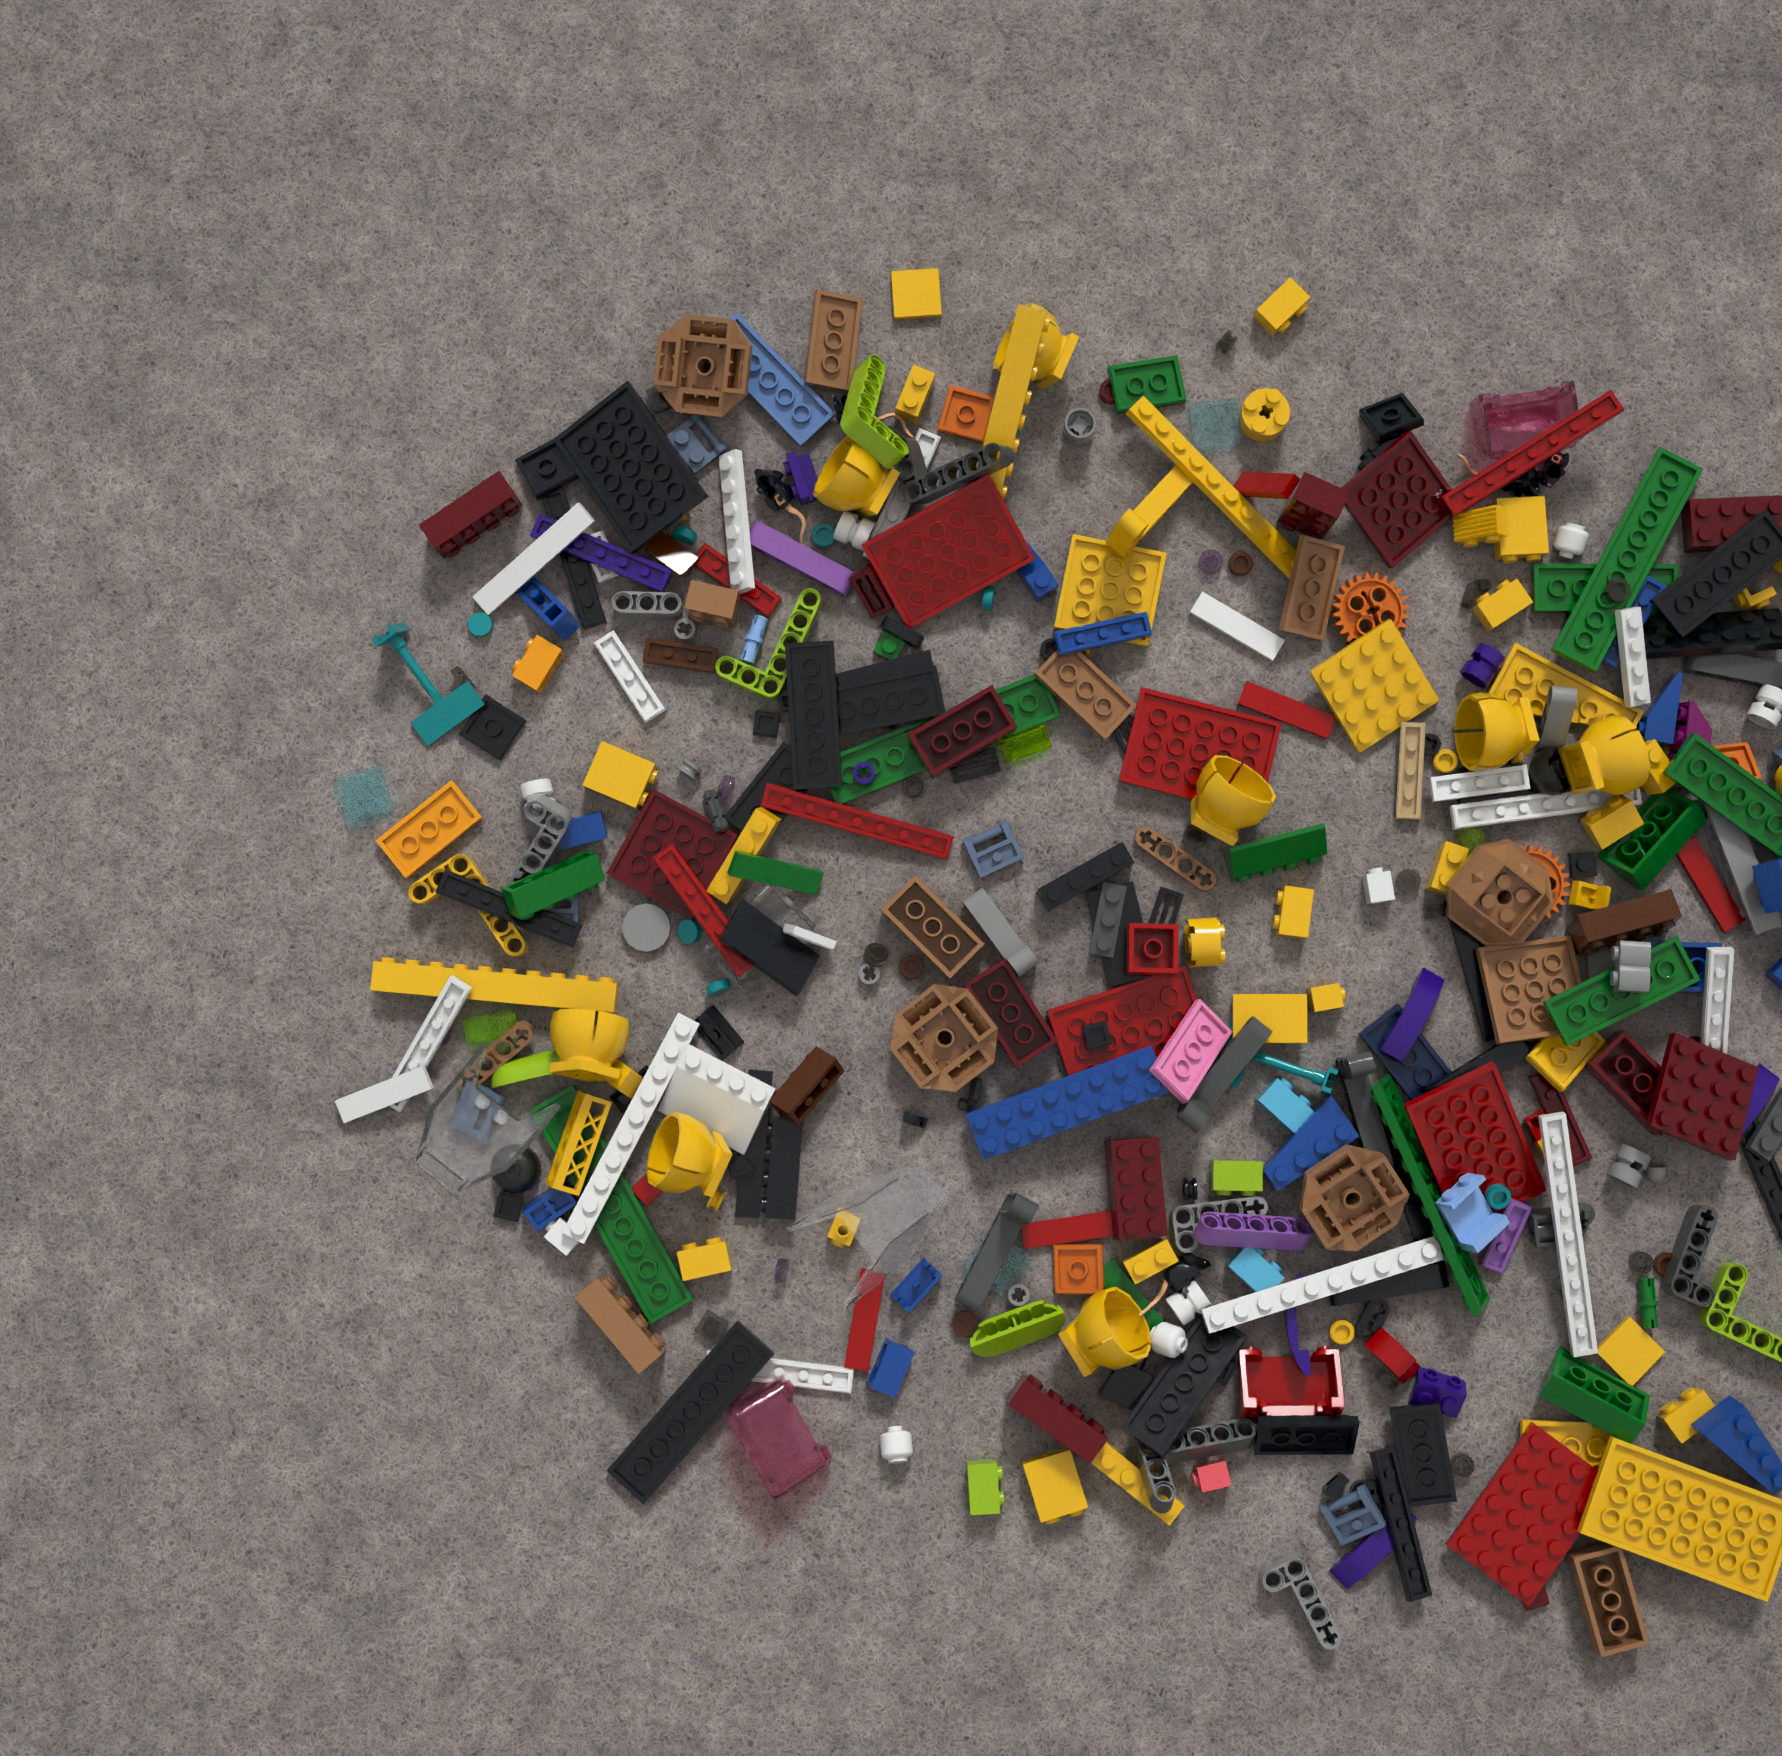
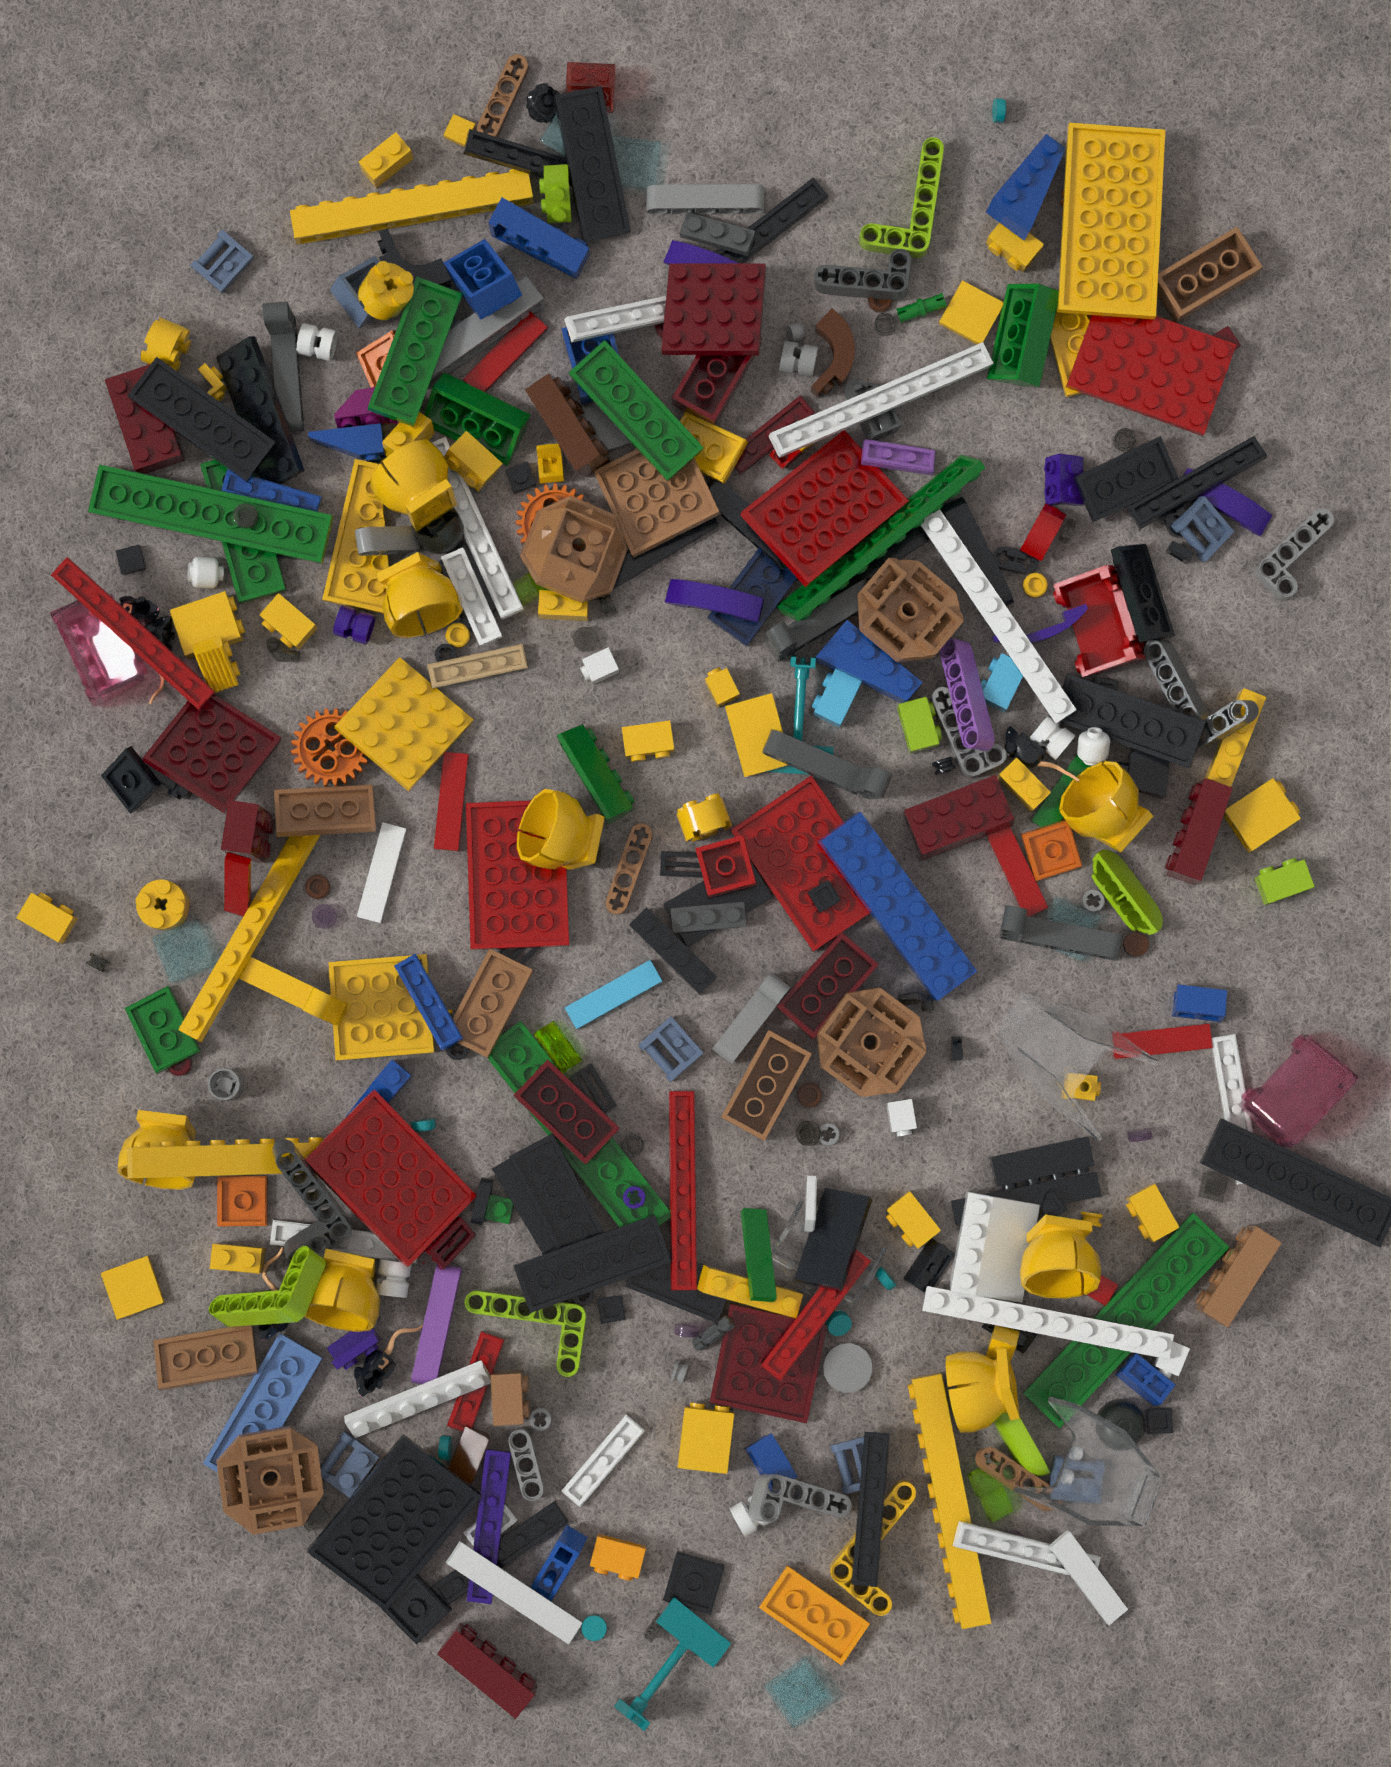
camera: 105 degrees left, 0 degrees up
(553, 884) = (835, 1471): green brick -> none
(569, 1141) = (1078, 1378): yellow fence -> none
(680, 655) = (567, 1415): reddish brown plate -> none
(753, 639) = (531, 1346): light blue pin -> none
(765, 1028) = (912, 1220): none -> yellow brick
(806, 1086) = (956, 1163): reddish brown brick -> none
(823, 535) = (406, 1308): teal tile -> none
(865, 1047) = (901, 1117): none -> white brick
(896, 1445) = (1270, 976): white head -> none
(916, 1285) = (1114, 1001): blue hinge -> none
(1059, 810) = (613, 994): none -> medium azure tile
(1191, 1051) = (813, 801): bright pink tile -> none
(1211, 1475) = (1206, 670): coral brick -> none
(1469, 1214) = (889, 495): light blue panel -> none
(1497, 1196) = (864, 474): teal tile -> none
(1602, 475) = (130, 559): none -> black tile
(1631, 966) = (612, 408): light grey brick -> none
(1632, 656) = (306, 484): white plate -> none
(1642, 1212) = (840, 339): none -> reddish brown arch

